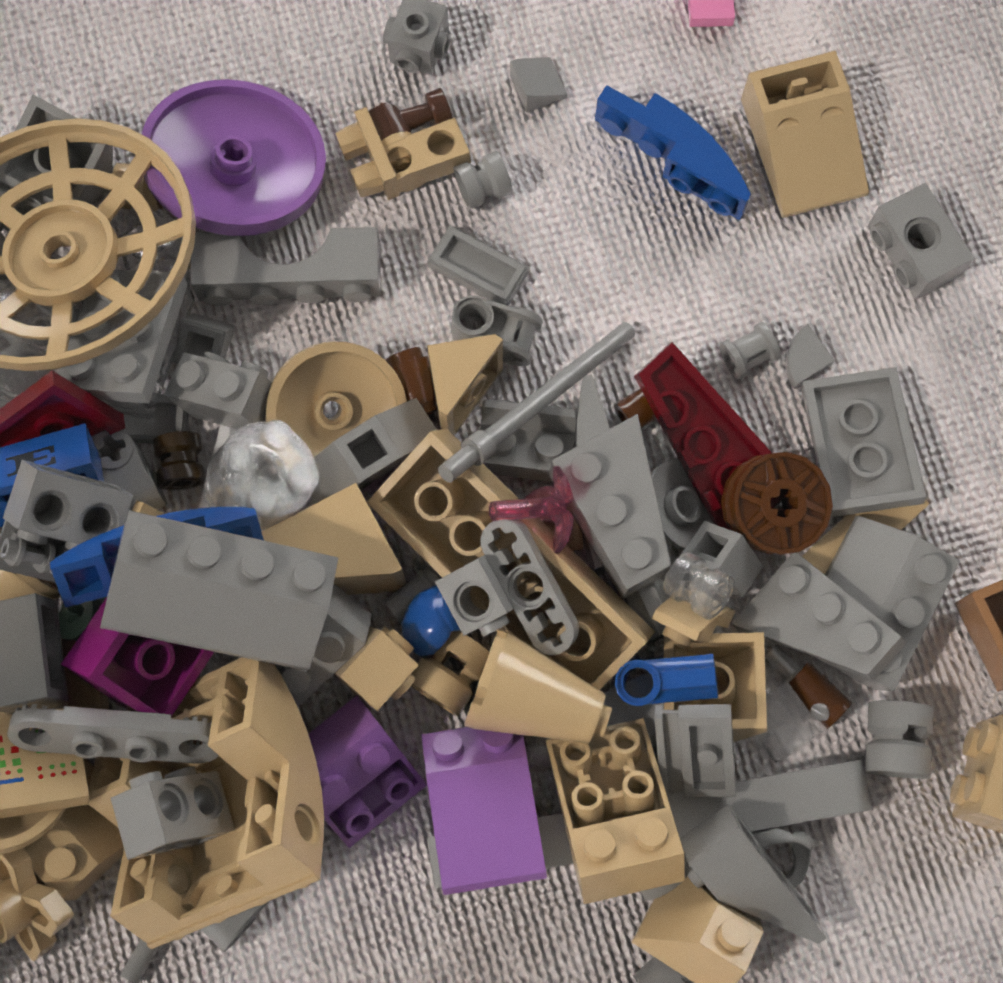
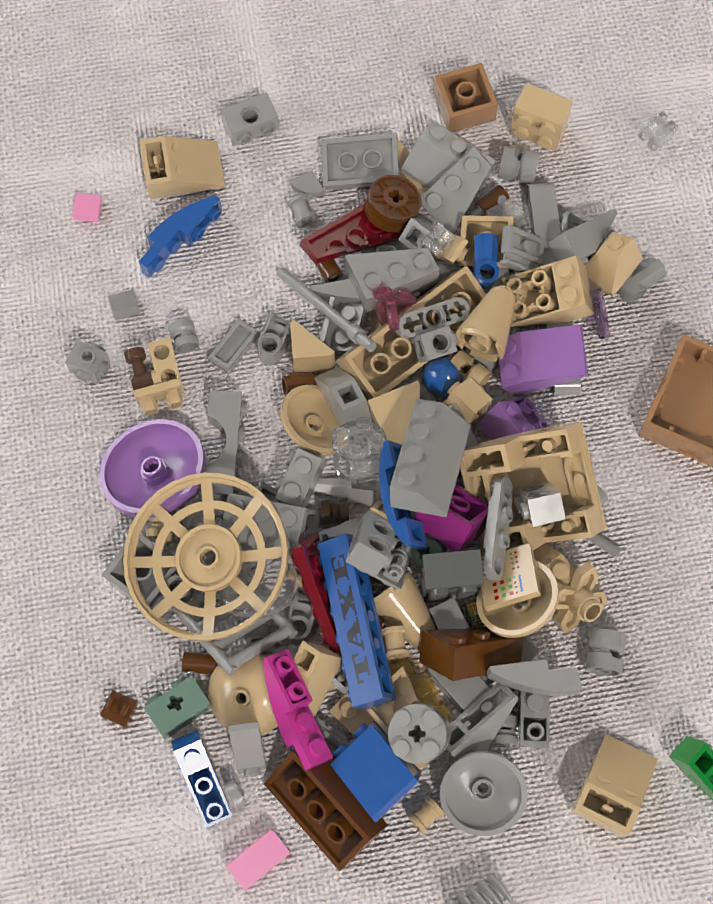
camera: 85 degrees left, 5 degrees down
(584, 920) = (600, 313): none -> clear purple tile

